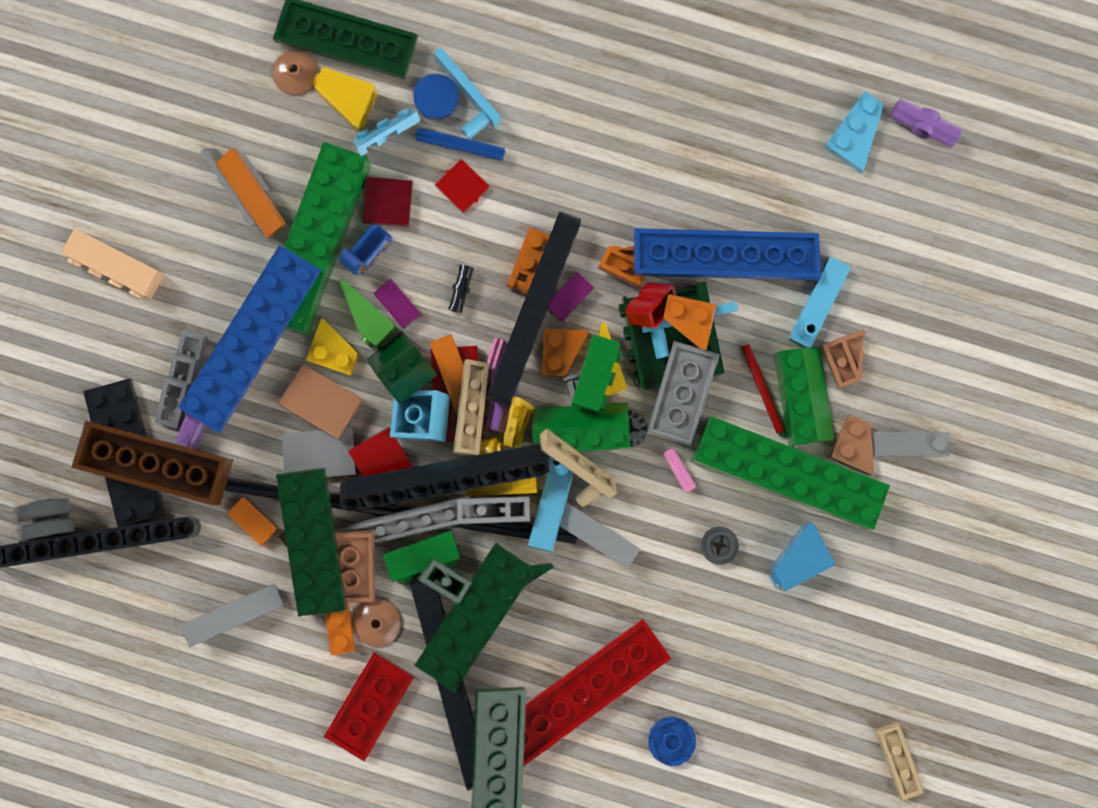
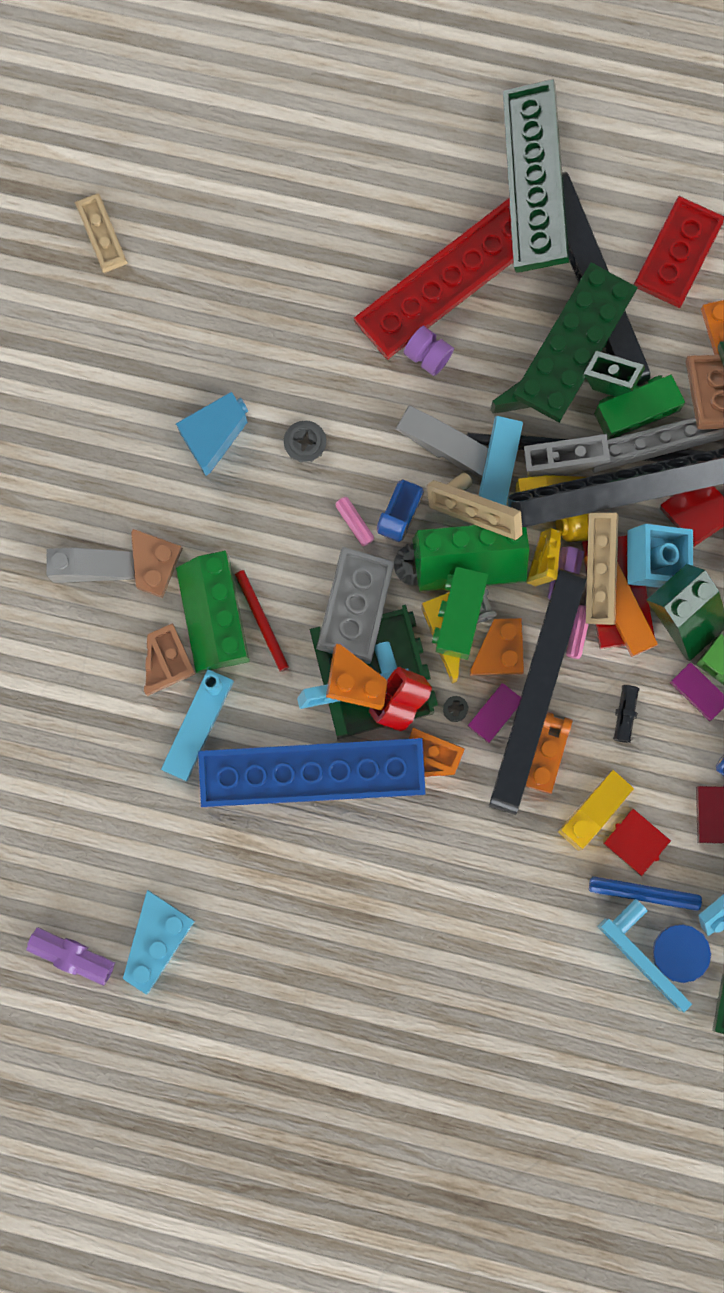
camera: 175 degrees left, 5 degrees down
(389, 623) = (673, 346): nougat dish -> none
(494, 210) = (595, 811): none -> yellow slope
(606, 621) = (428, 350): none -> medium lavender wheel
(608, 307) = (462, 714): none -> pearl dark grey bush
(640, 473) = (400, 511): none -> blue animal
(671, 741) = (347, 237): blue tile -> none
(790, 473) = (228, 522): green brick -> none

